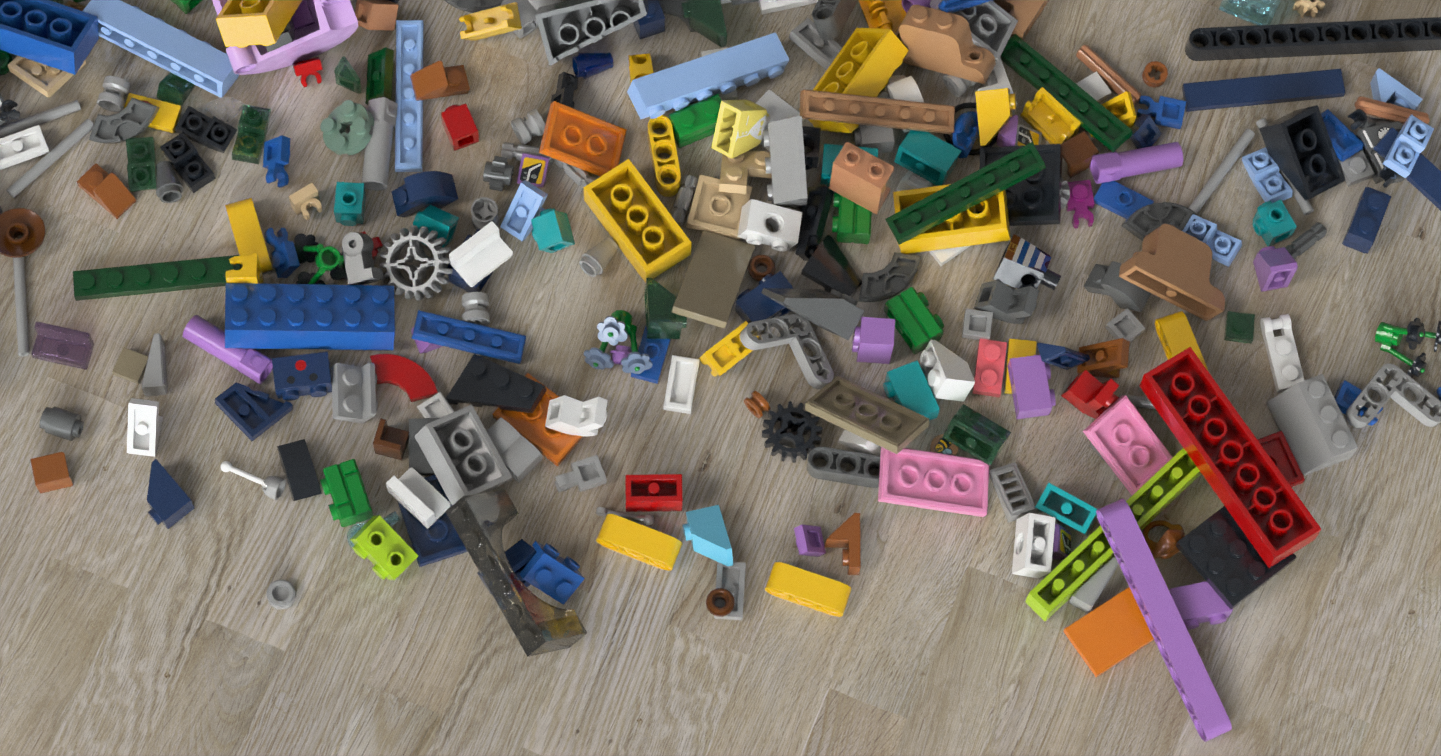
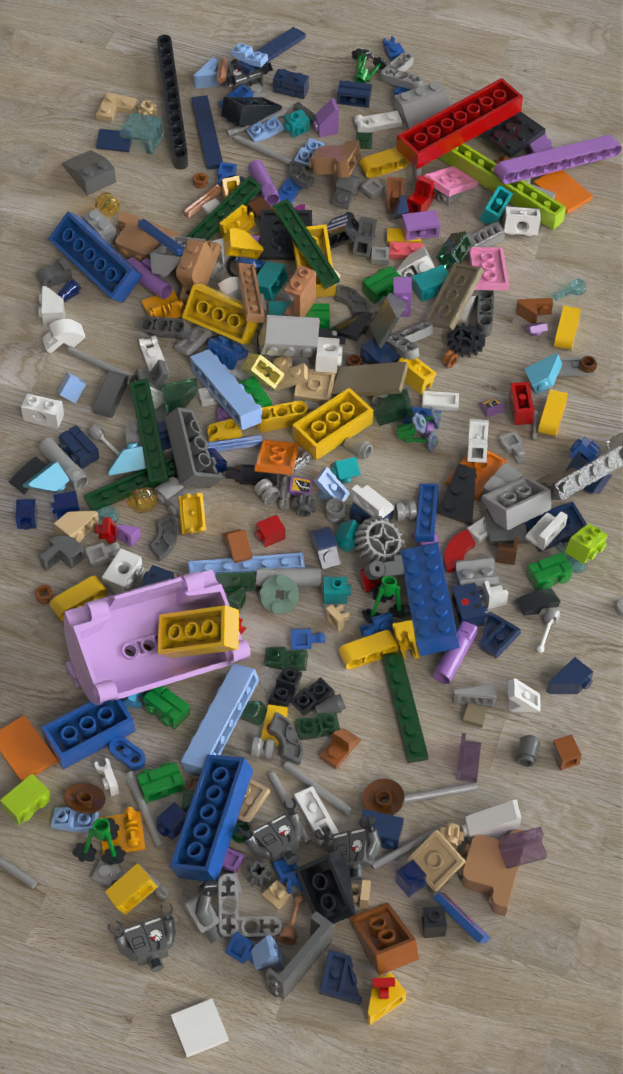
camera: 90 degrees left, 15 degrees down
(318, 412) = (494, 596): none -> white panel
(622, 79) = (235, 443): none -> axle
(663, 455) = (491, 407): none -> medium lavender slope
(786, 92) = (227, 351): none -> blue bracket
(895, 618) = (576, 287): none -> clear light blue plate
(1344, 319) = (354, 94): none -> dark blue brick

